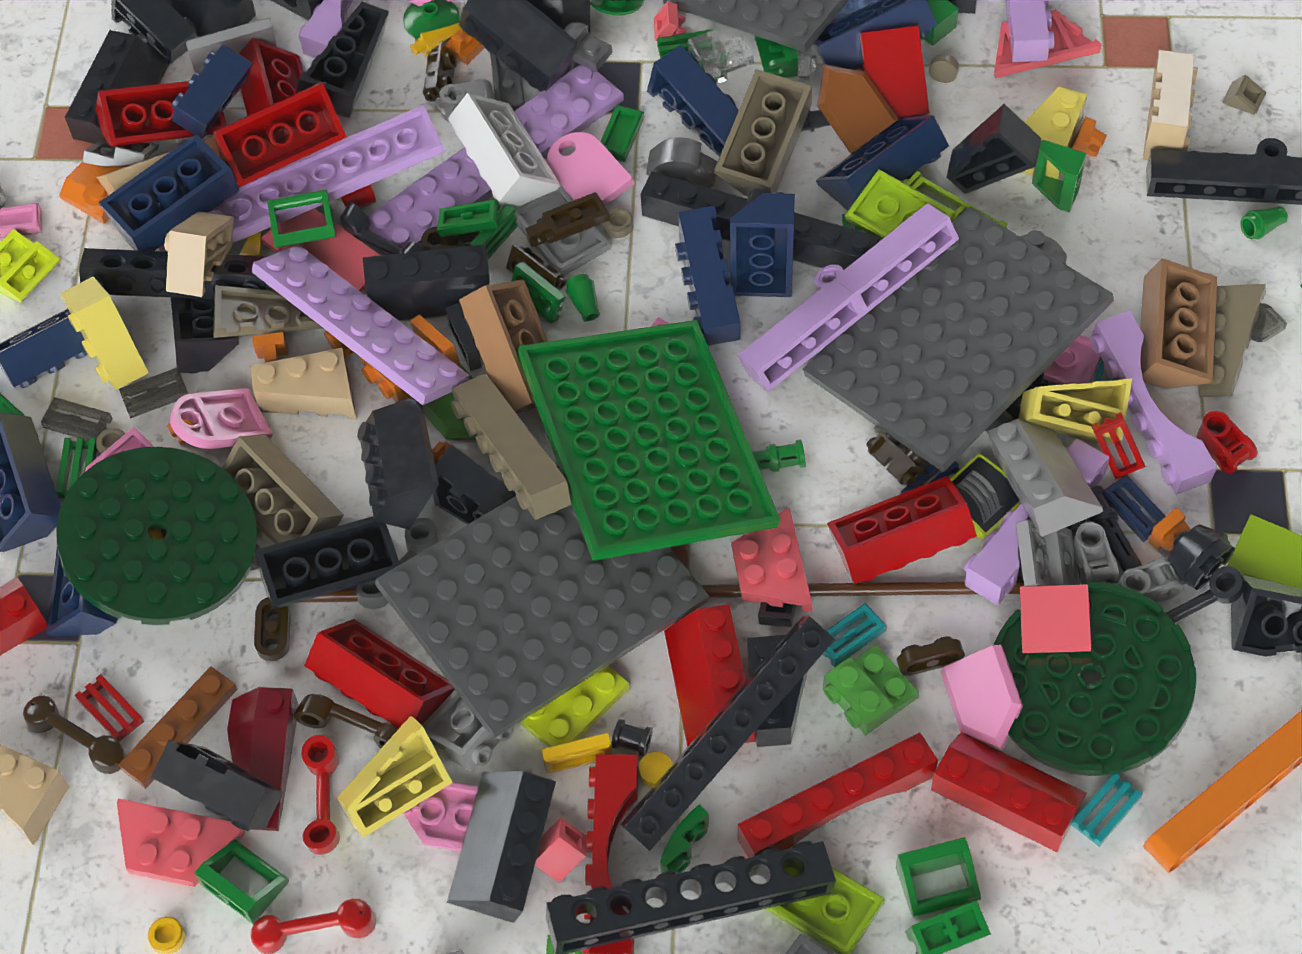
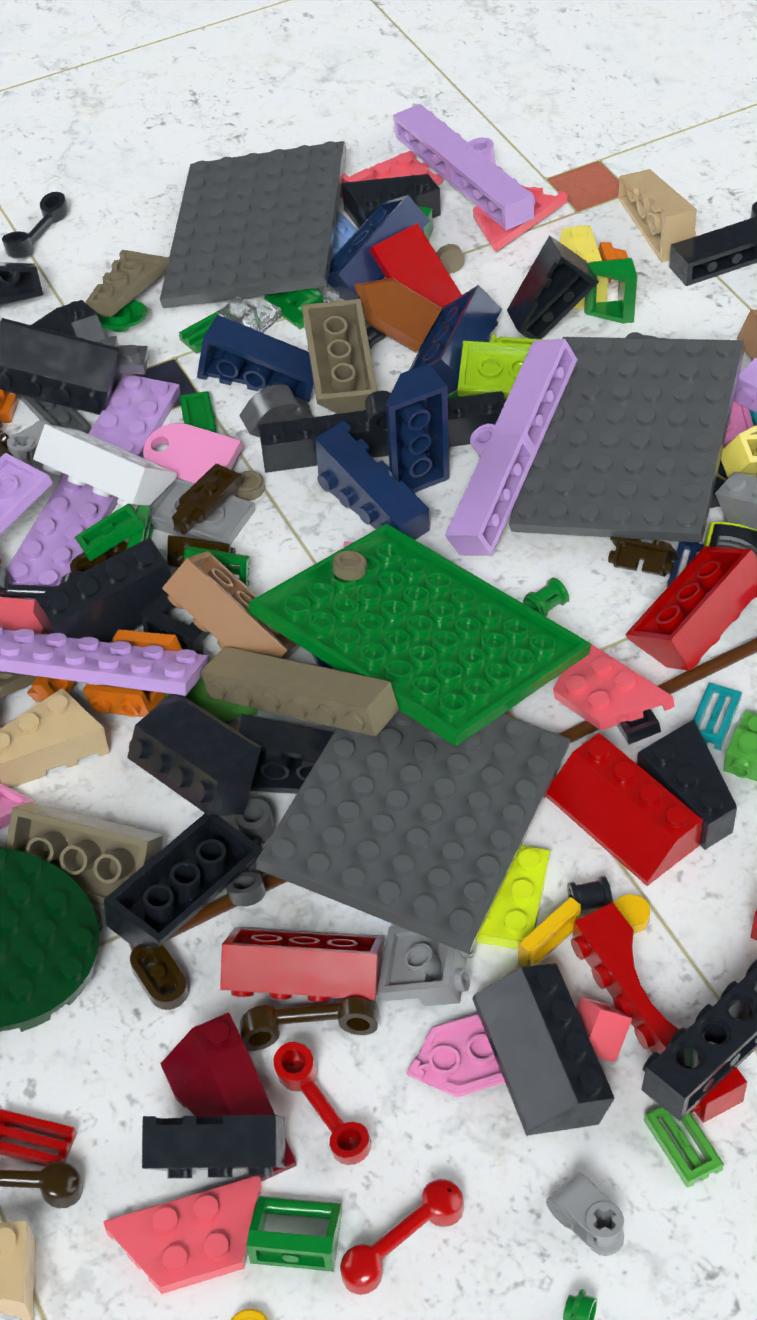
camera: 30 degrees left, 10 degrees down
(179, 724) = (119, 1121): dark orange plate -> none
(394, 779) = (393, 1044): light yellow wedge -> none
(583, 296) = (262, 553): green cone -> none
(627, 349) = (349, 565): none -> dark tan tile
(668, 21) = (180, 315): coral tile -> none
(678, 850) = (709, 962): green slope -> none
(727, 732) = (690, 837): black brick -> none
(1244, 95) = (704, 187): dark tan slope -> none

